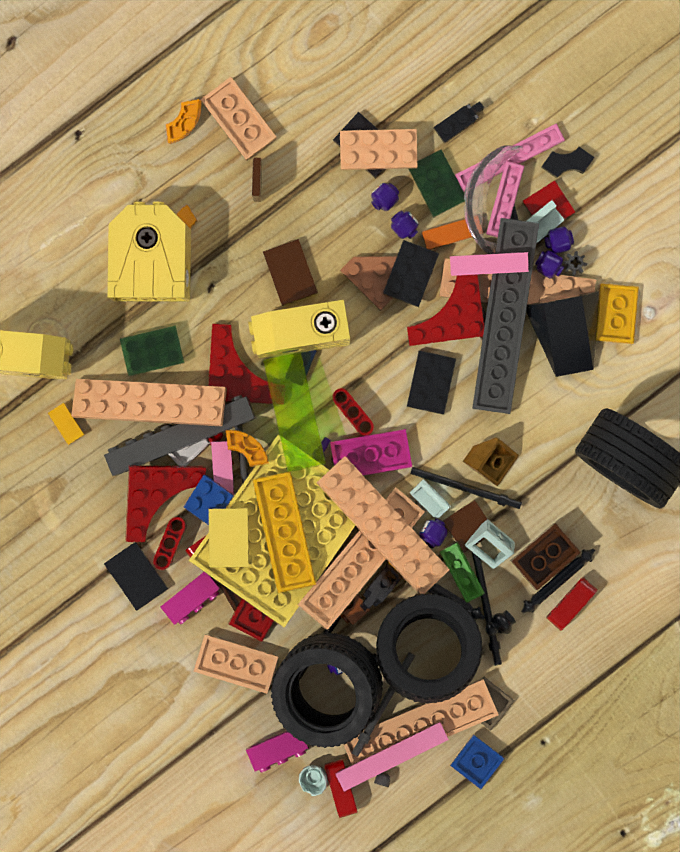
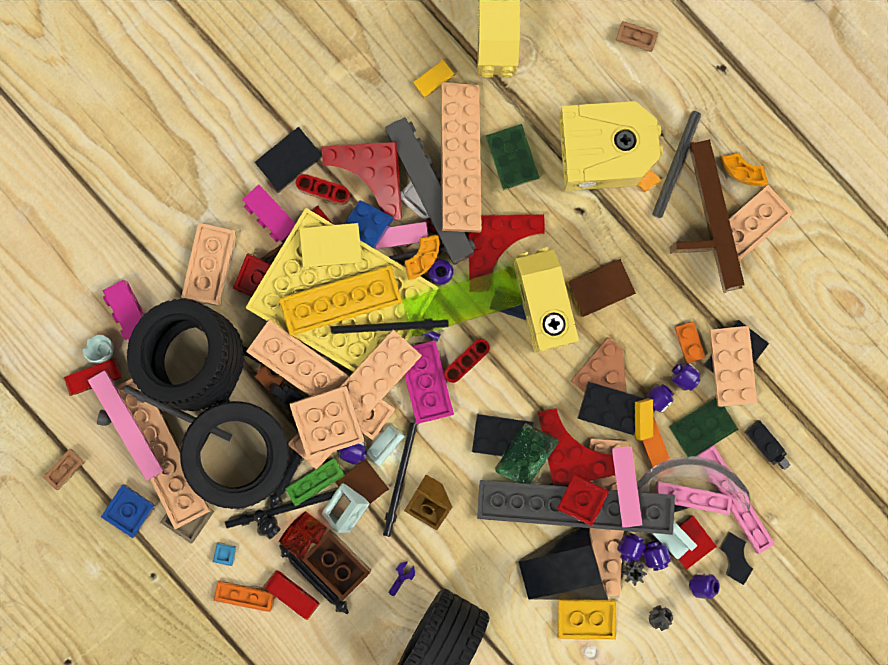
camera: 80 degrees right, 0 degrees up
(40, 216) = (636, 36): none -> medium nougat plate
(172, 187) = (676, 164): none -> dark grey axle
(227, 153) = (716, 215): none -> reddish brown tile
(259, 425) = (447, 270): none -> dark purple head
(314, 446) = (428, 324): none -> black bar
(351, 189) = (689, 342): none -> orange plate
(403, 554) = (327, 422): none -> light nougat plate
(424, 241) = (643, 419): none -> yellow tile
(431, 823) = (63, 469): none -> medium nougat plate
(450, 360) = (526, 454): none -> clear green plate
(499, 308) = (583, 500): none -> red tile
(512, 588) = (302, 534): none -> clear red slope
(527, 668) = (224, 554): none -> dark azure tile
(564, 494) = (401, 578): none -> dark purple bar
(570, 651) = (243, 596): none -> orange tile
(592, 196) = (704, 586): none -> dark purple head
(620, 241) = (660, 618): none -> dark grey gear

